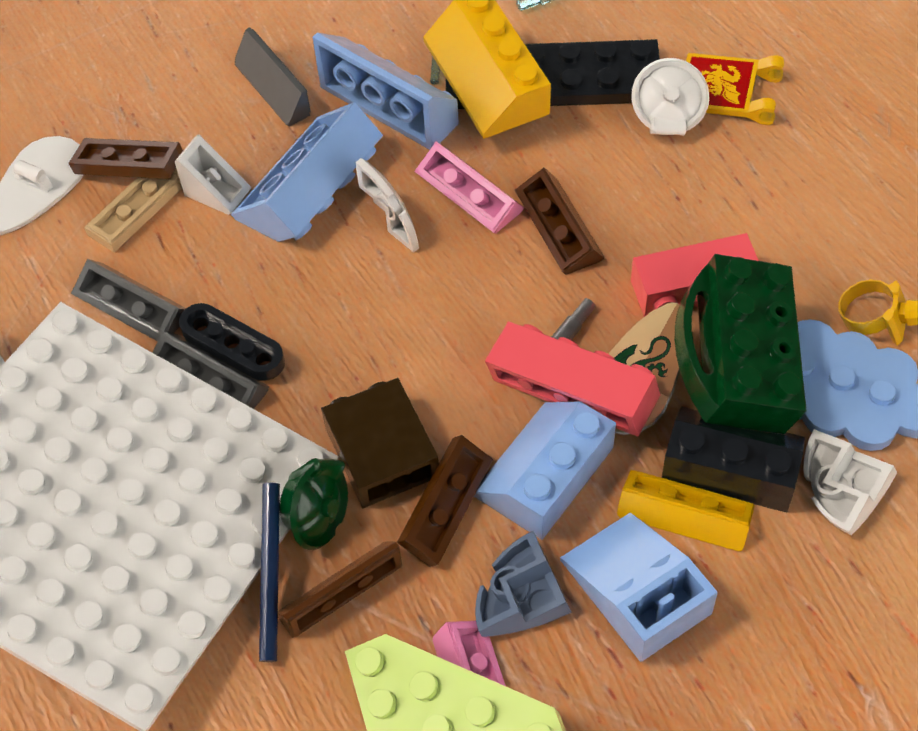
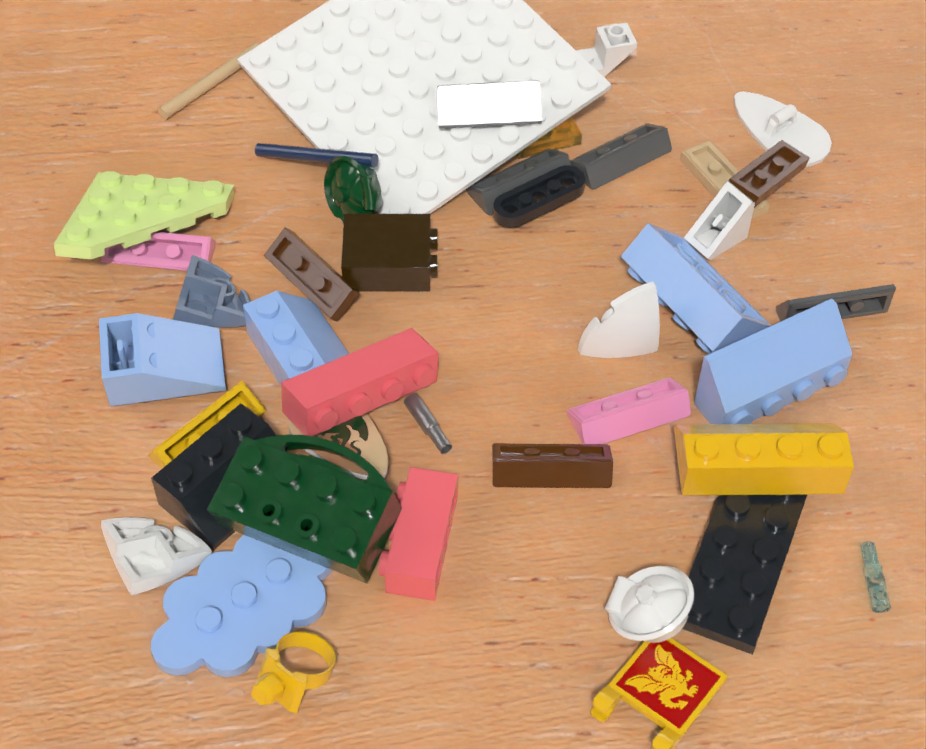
camera: 110 degrees right, 5 degrees down
(145, 399) = (489, 104): none -> slope
(340, 588) = (286, 194): reddish brown slope -> none

